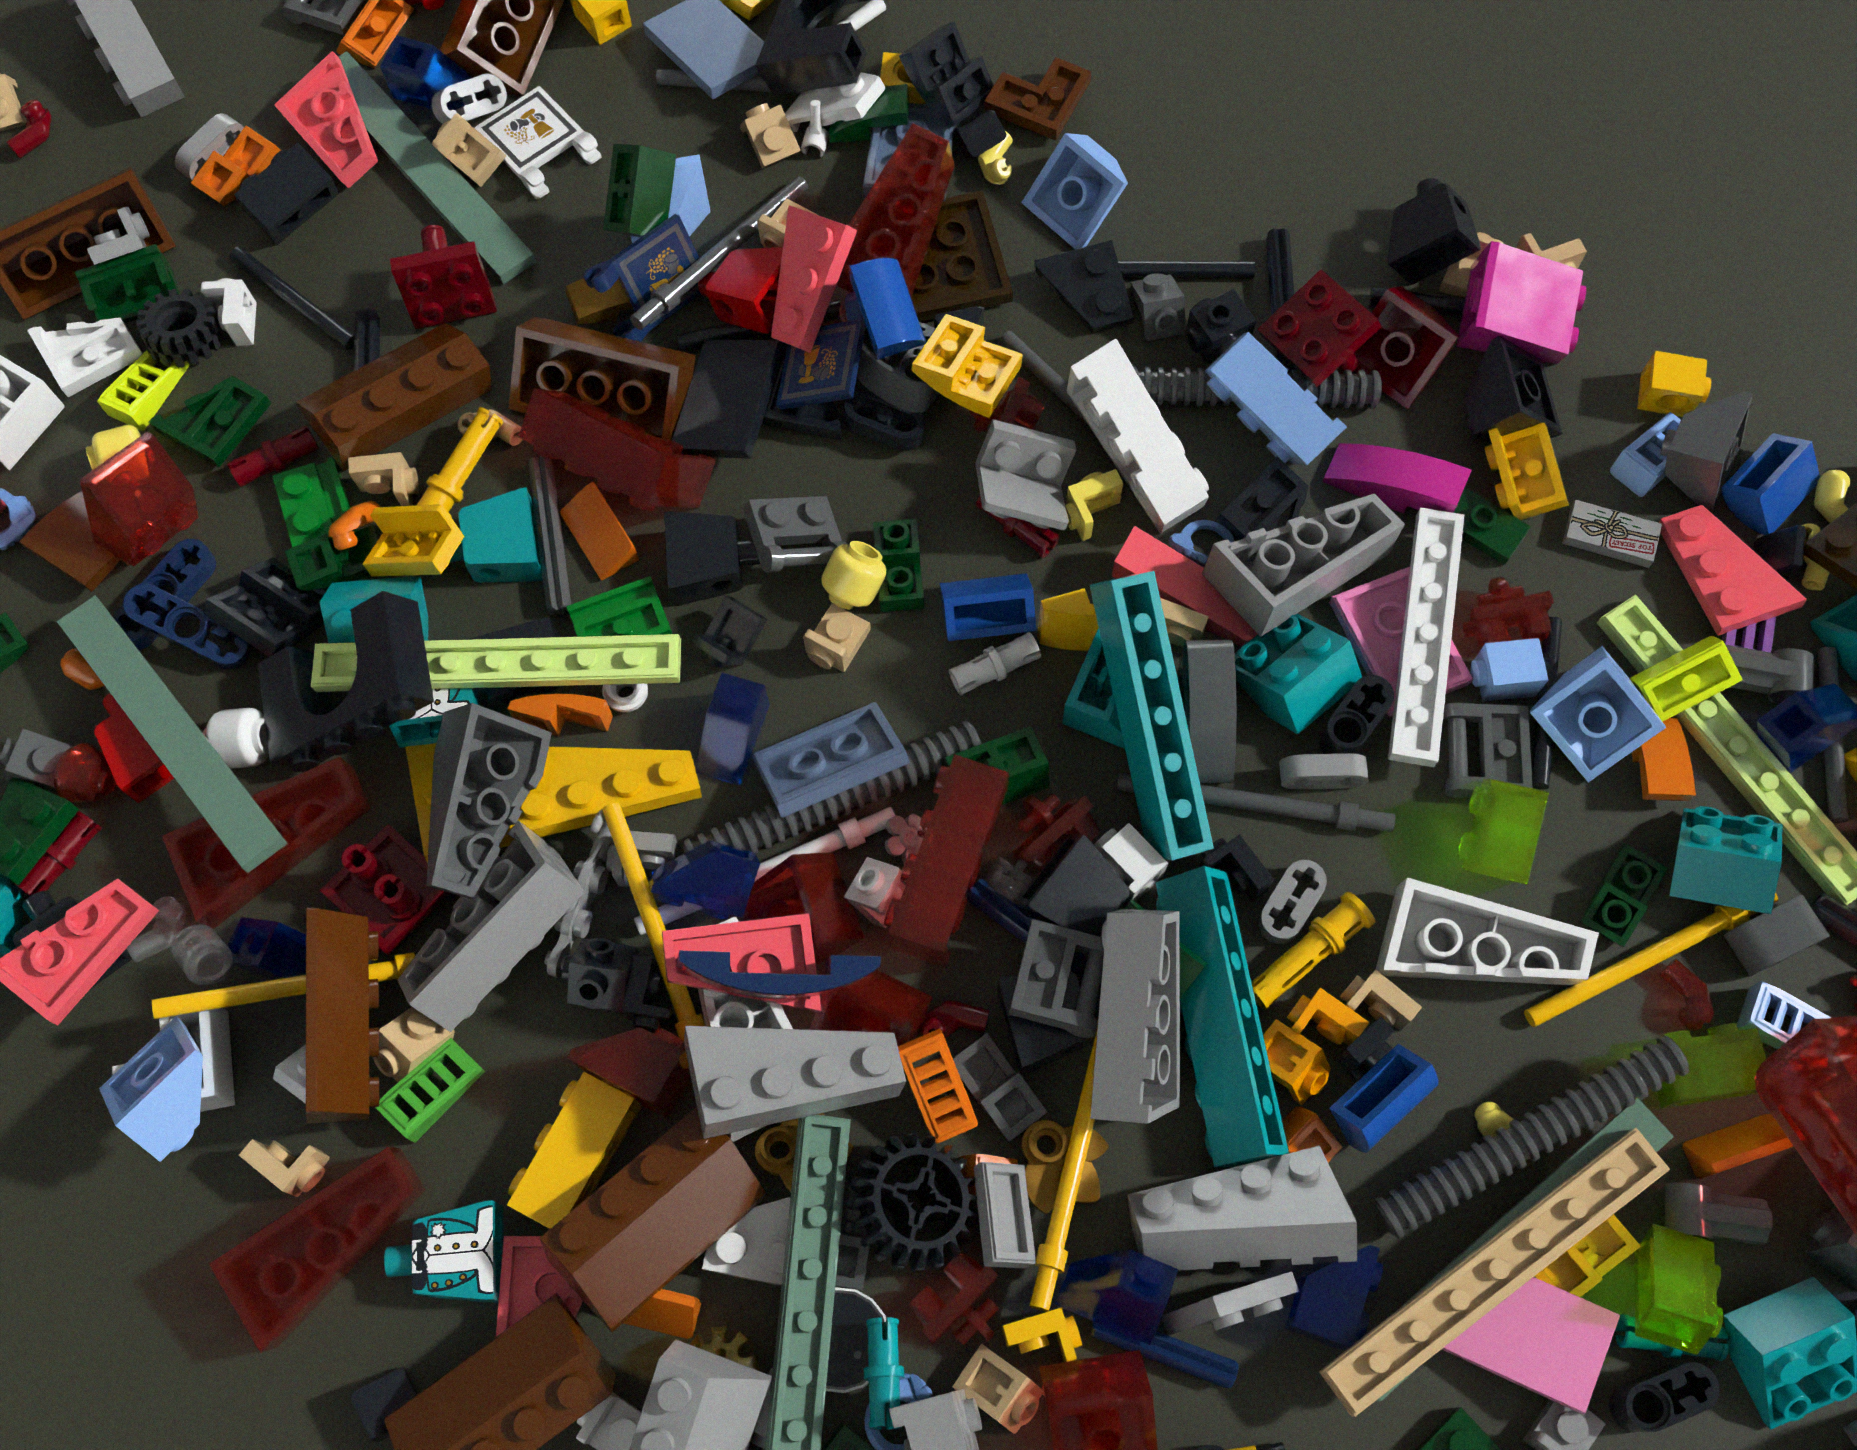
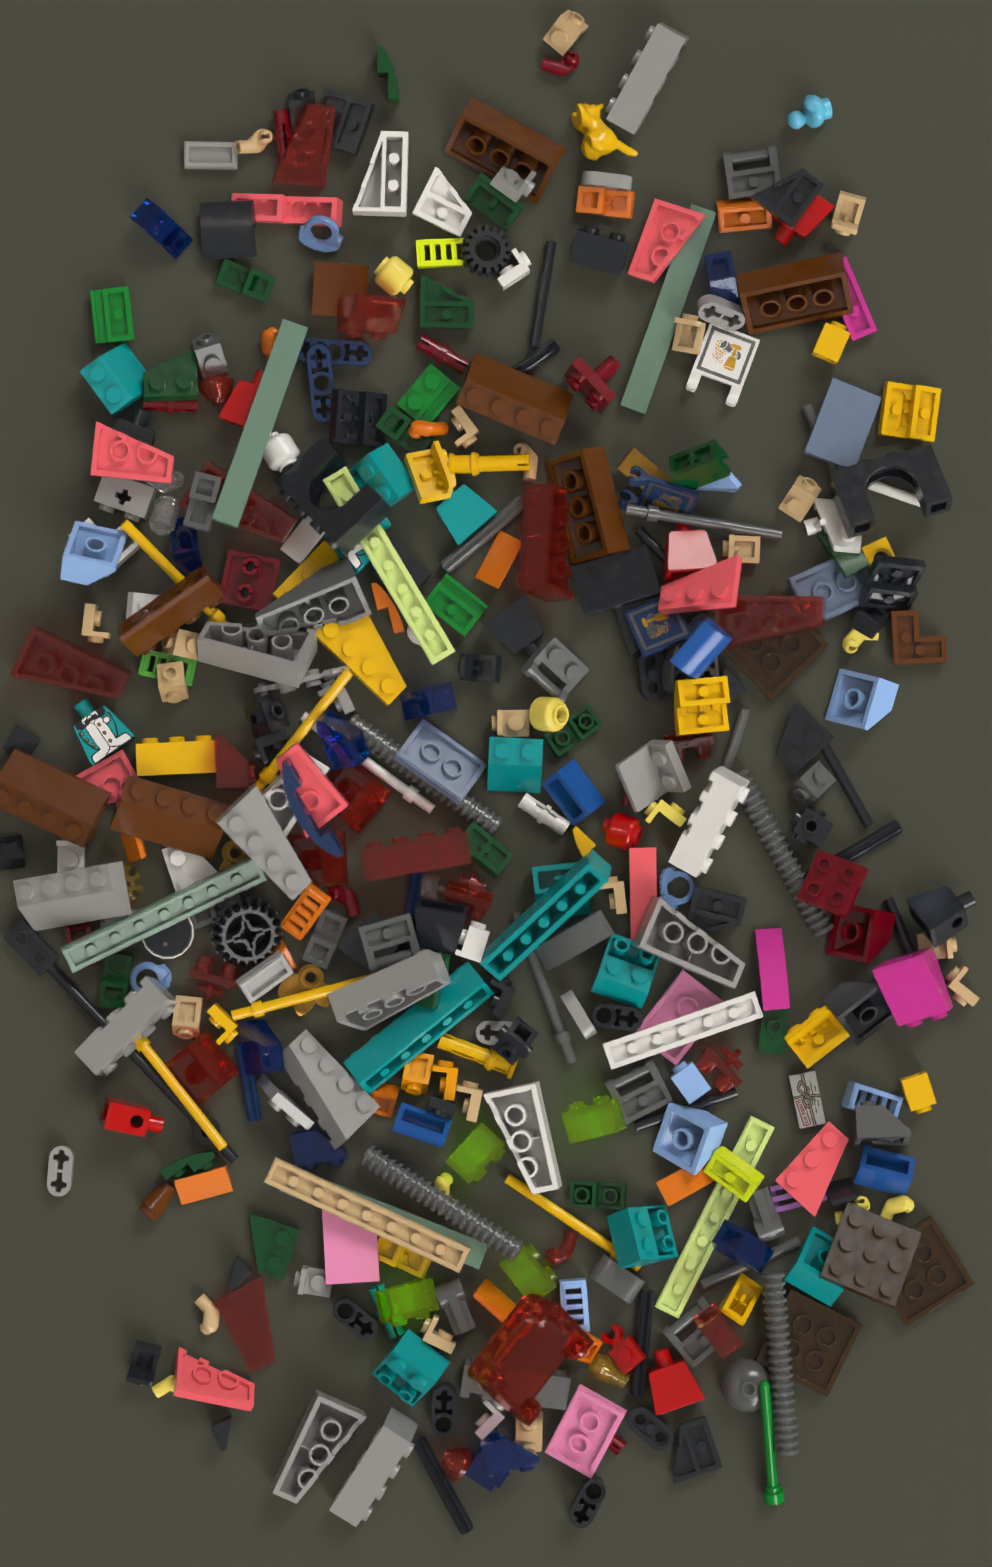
camera: 60 degrees right, 20 degrees up
(110, 1005) = (141, 497): none -> light grey brick
(146, 126) = (598, 137): none -> yellow animal
(214, 875) = (202, 501): none -> dark grey slope
(384, 776) = (302, 541): none -> white slope
(455, 1091) = (172, 682): none -> tan bracket
(874, 889) = (384, 826): white bracket -> none
(883, 1371) = (163, 961): teal pin -> none
(896, 660) = (515, 764): none -> teal slope
(904, 836) = (423, 824): plant -> none
(1080, 565) = (622, 831): none -> red head
(1272, 401) = (771, 884): light blue wedge -> none
(1322, 874) = (515, 1041): none -> black brick
(1469, 1040) = (476, 1152): none -> clear neon green brick
(1756, 1274) = (440, 1339): none -> tan bracket

